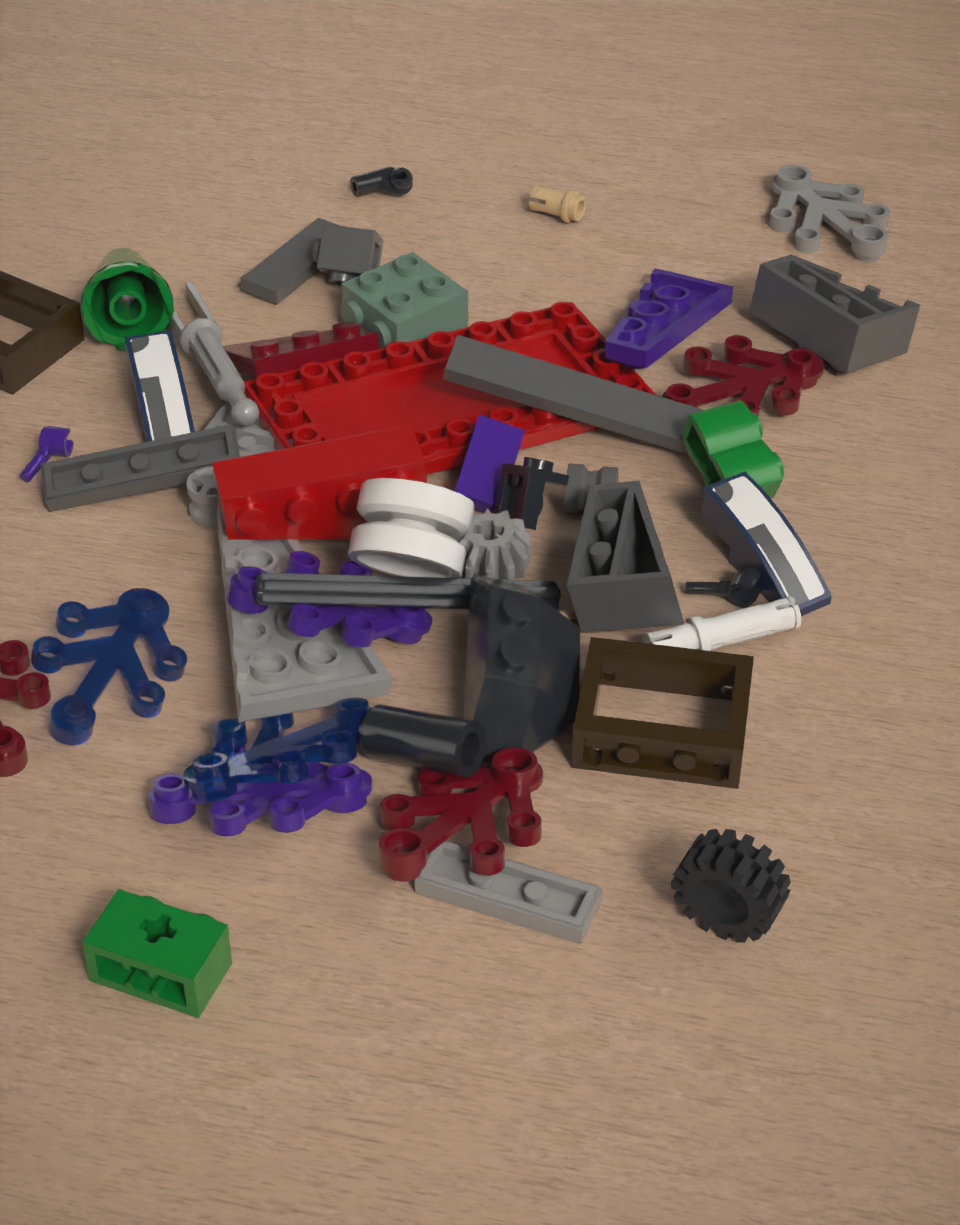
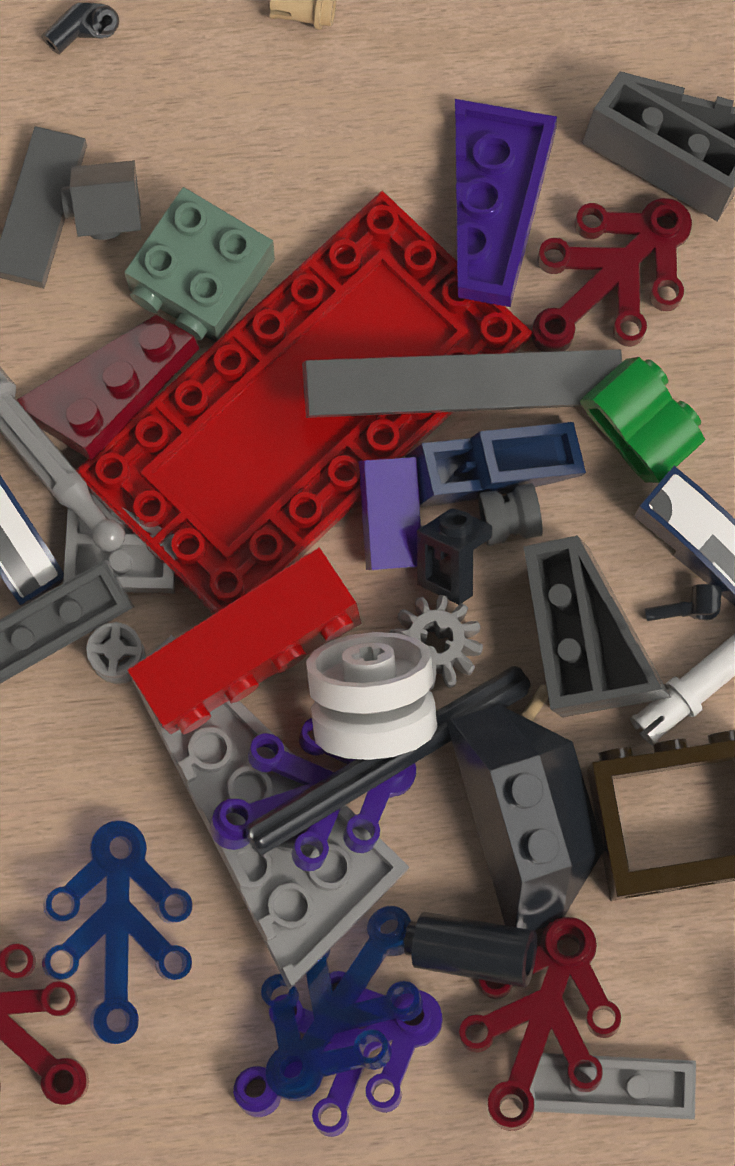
camera: 20 degrees left, 35 degrees up
(595, 449) = (496, 461): none -> dark blue slope

